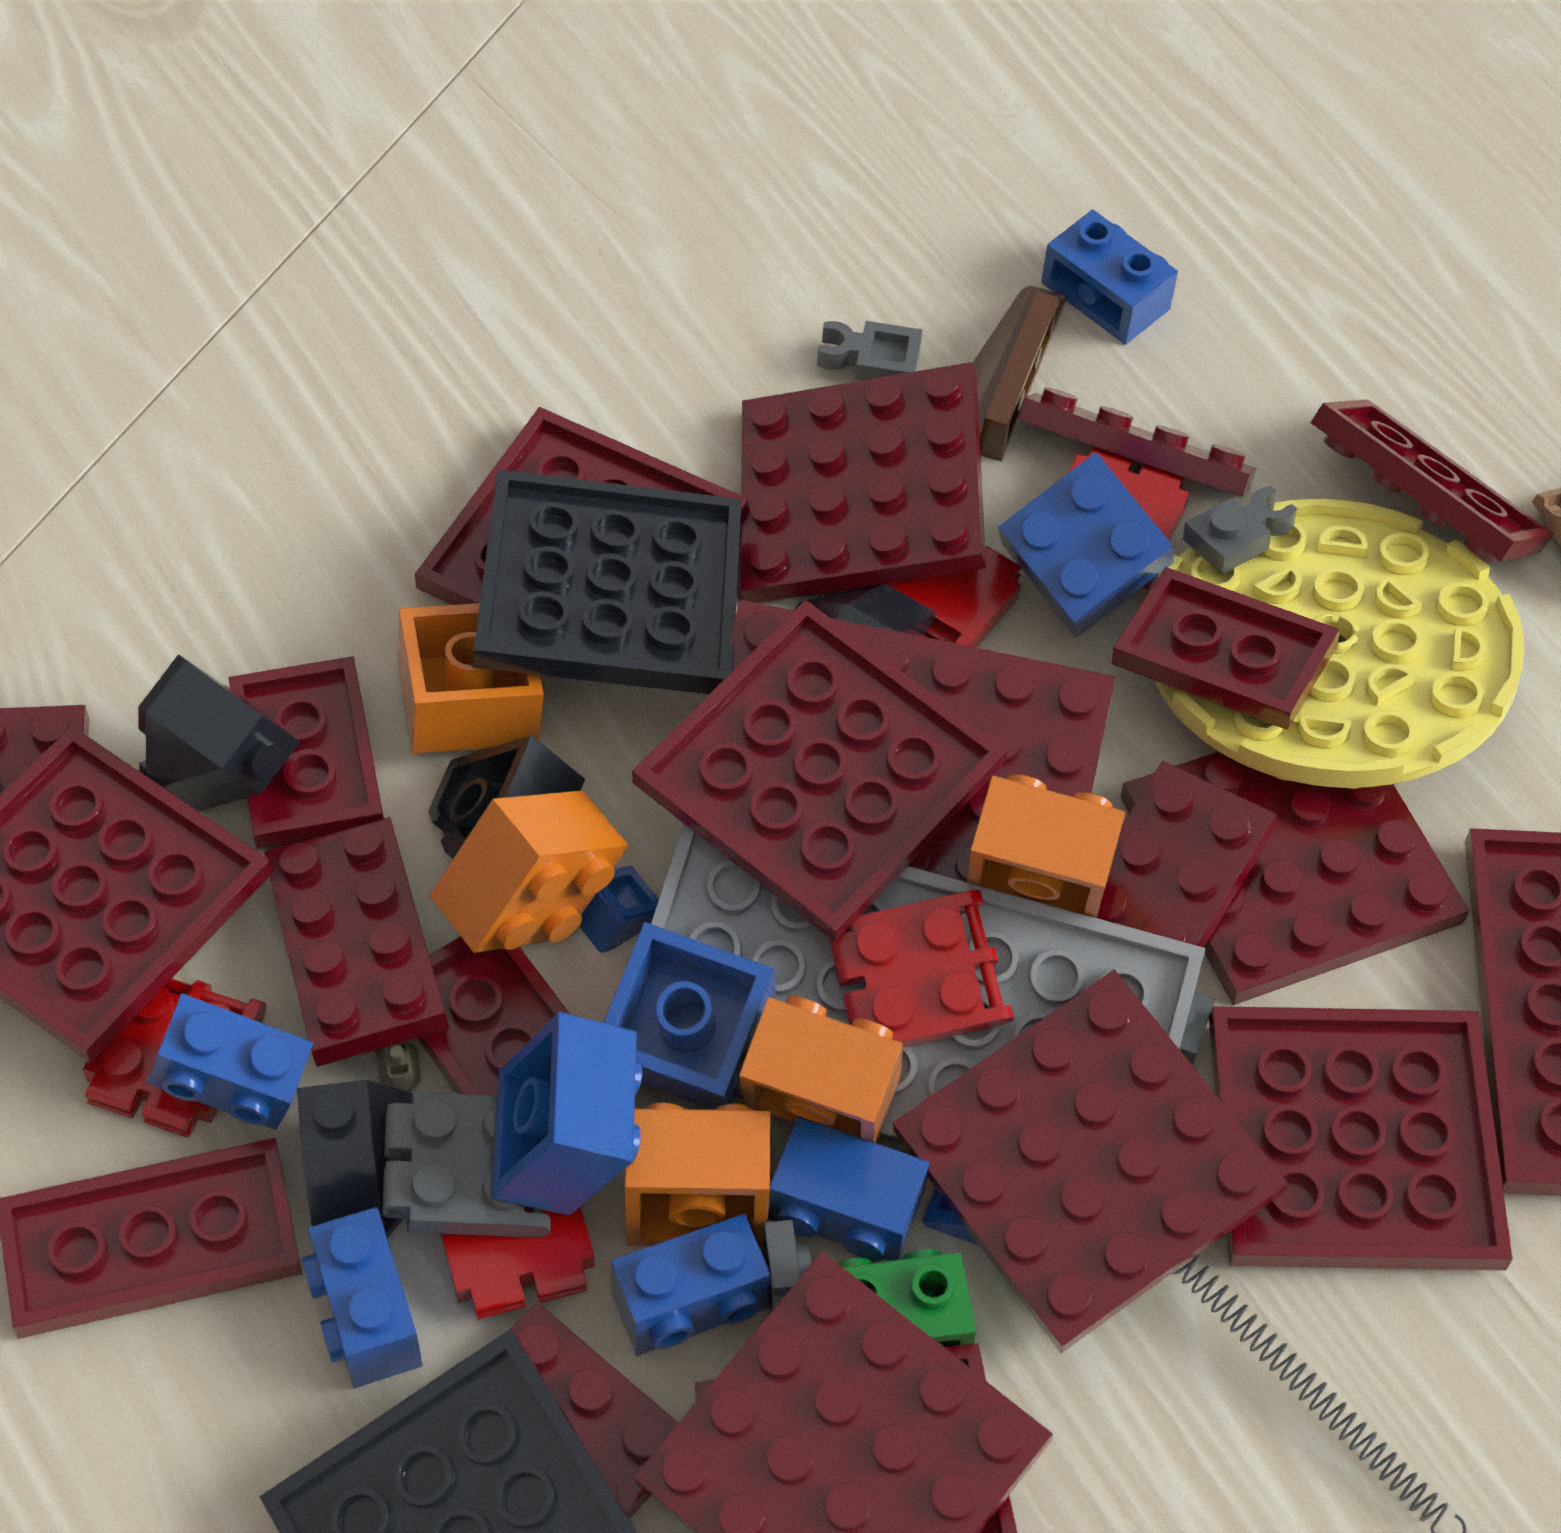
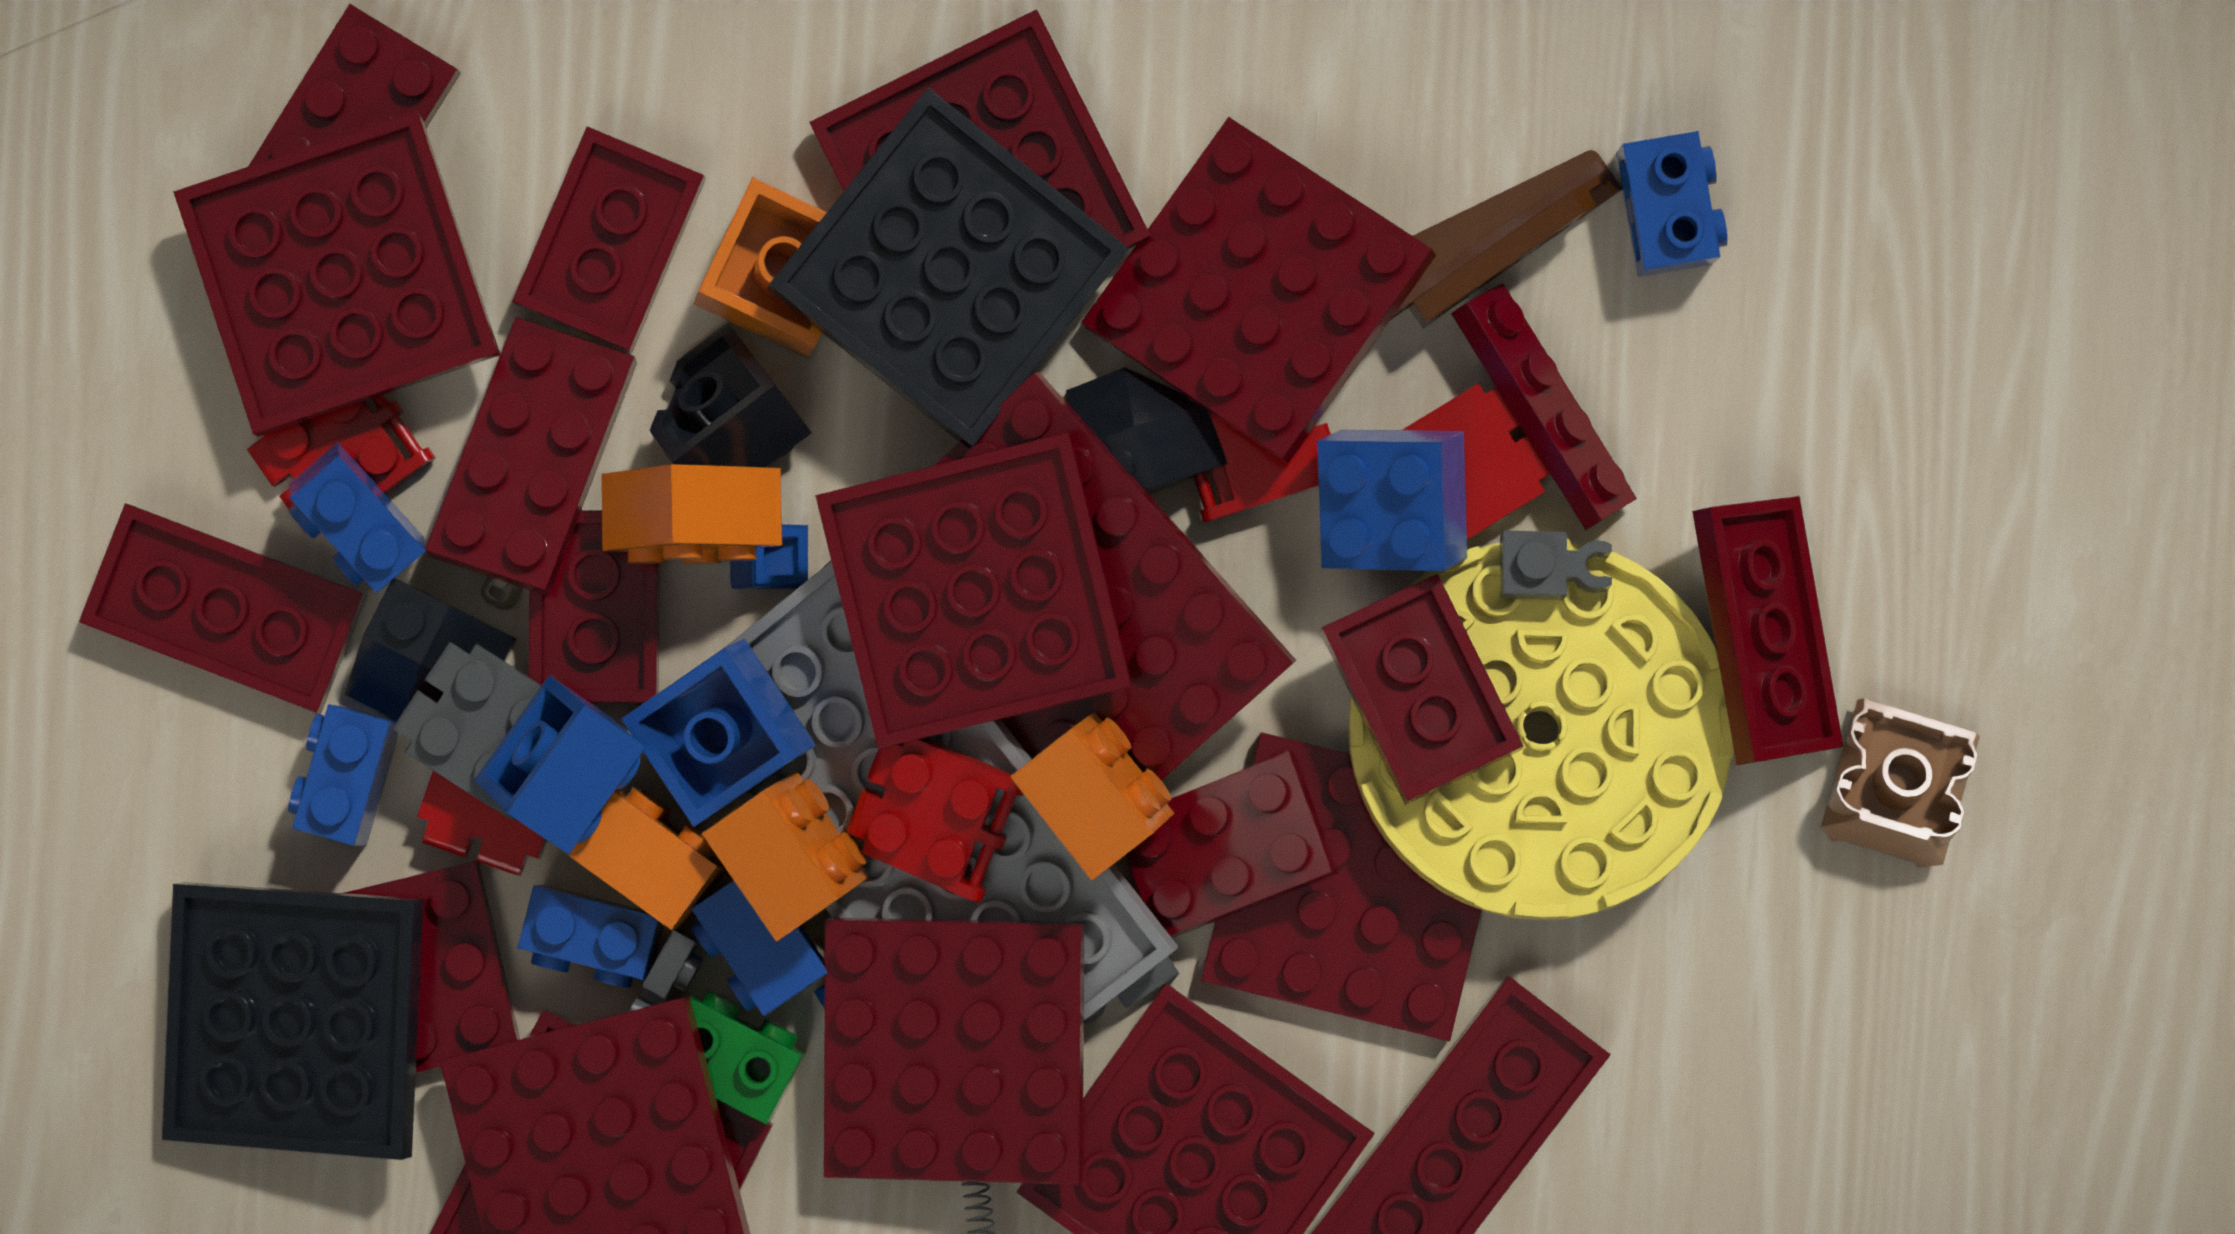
camera: 40 degrees right, 30 degrees up
(208, 739) = (524, 204): black slope -> none
(876, 352) = (1393, 148): dark grey plate -> none

